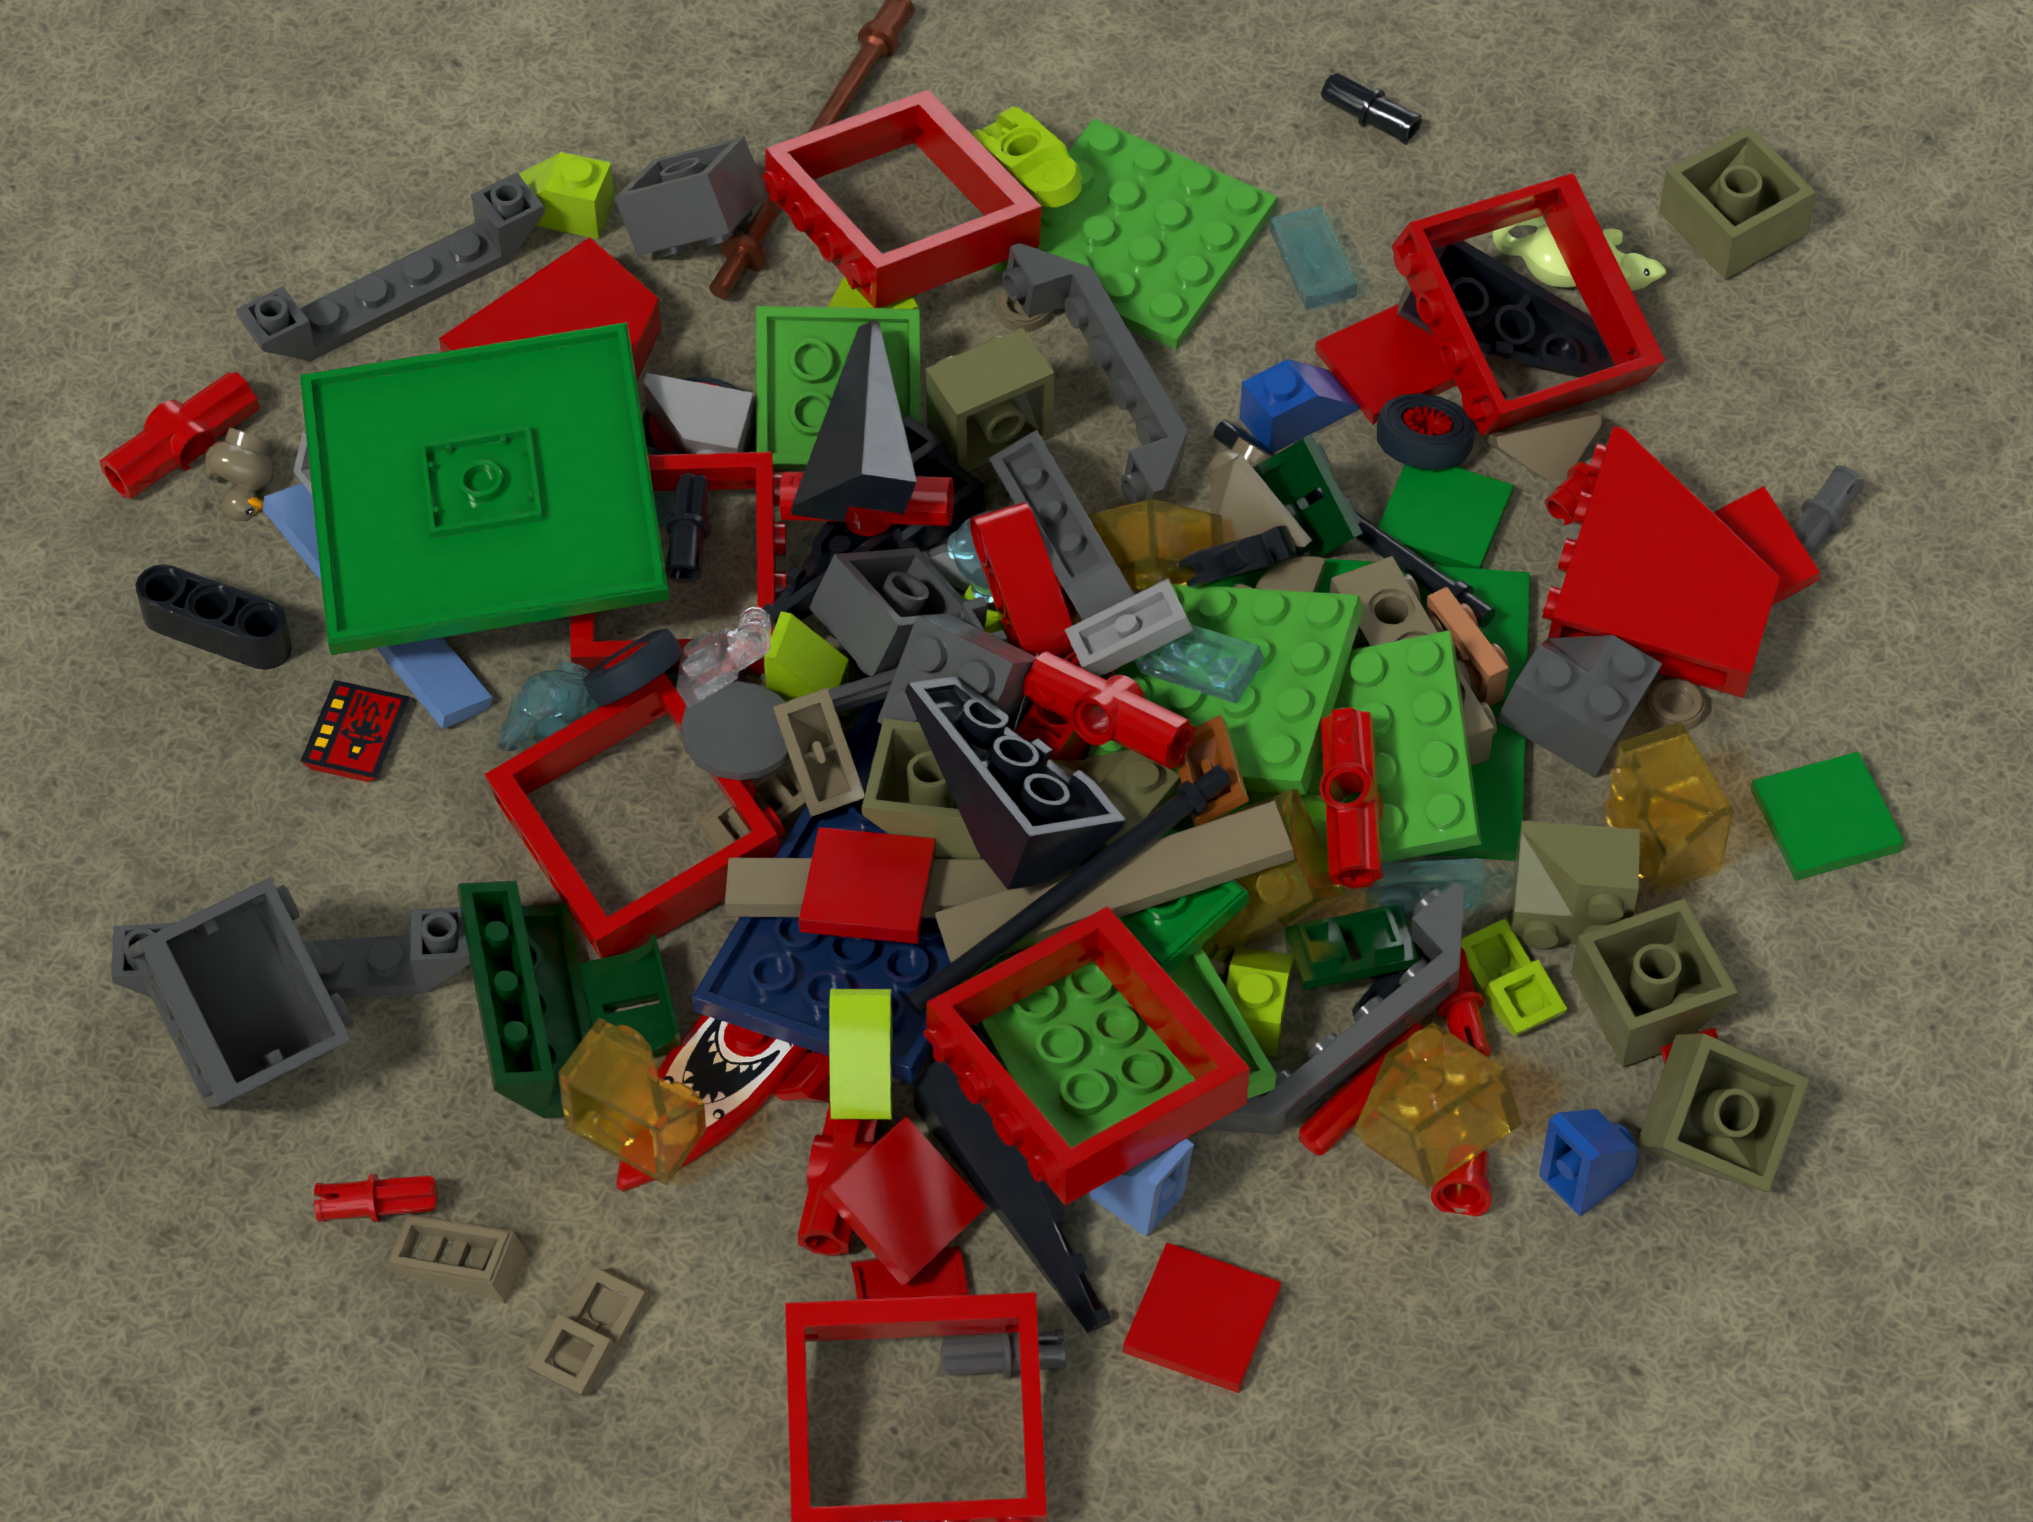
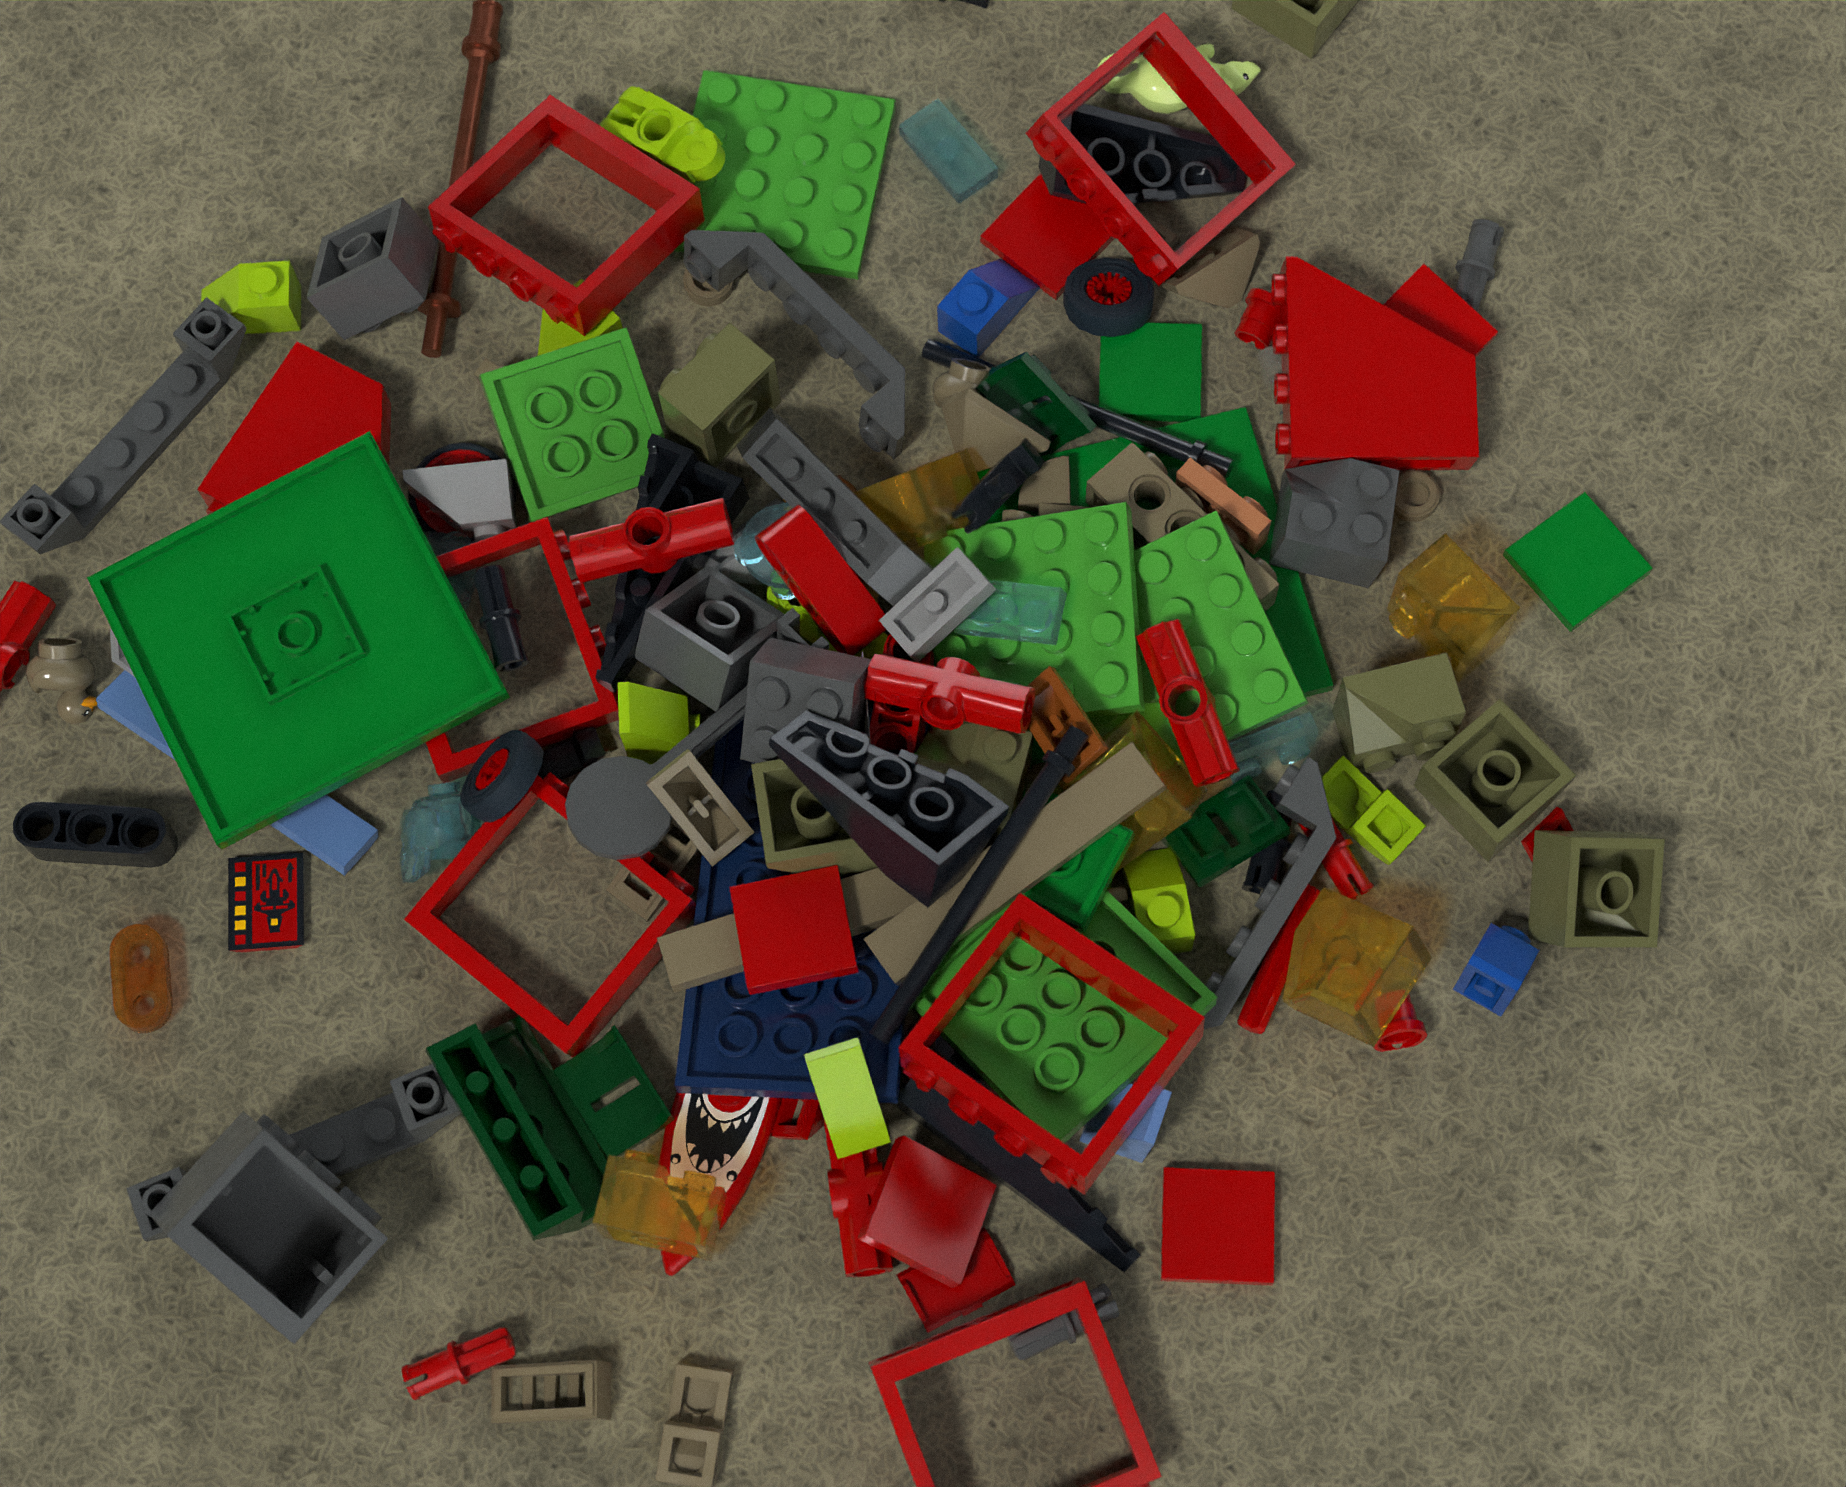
camera: 15 degrees left, 15 degrees up
(204, 762) = (140, 980): none -> clear orange plate
(715, 660) = (579, 741): clear plate -> none
(862, 443) = (630, 494): black wedge -> none

